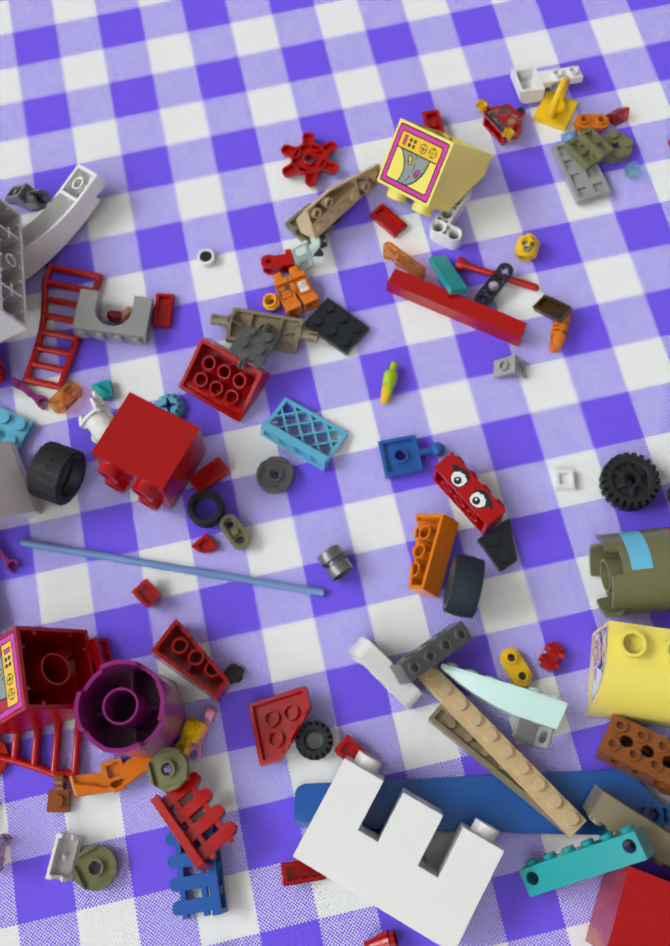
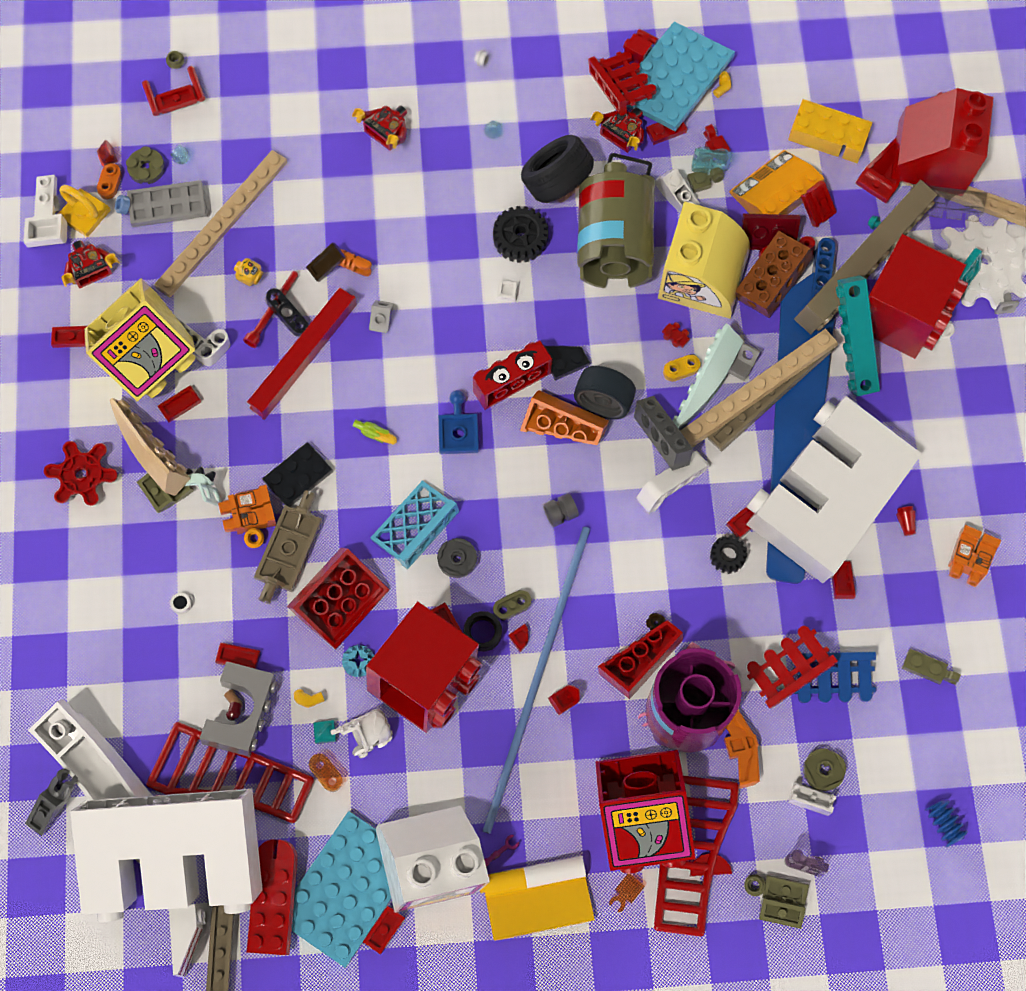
camera: 90 degrees left, 0 degrees up
(37, 398) = (297, 828): magenta piece -> none
(56, 473) = (423, 776): black tyre -> none
(60, 798) = (757, 803): dark orange plate -> none
(100, 651) = (625, 749): red plate -> none
(129, 369) = (306, 700): none -> yellow arm
(179, 774) = (755, 686): olive plate -> none
(254, 345) = (312, 554): dark grey plate -> none
(277, 263) = (209, 523): red leg -> none
(277, 723) = (709, 583): red plate -> none
(402, 260) = (236, 394): clear orange plate -> none
(448, 275) = (265, 352): teal tile -> none
(575, 219) = (220, 223): none -> tan plate
(588, 148) = (146, 189): olive slope -> none

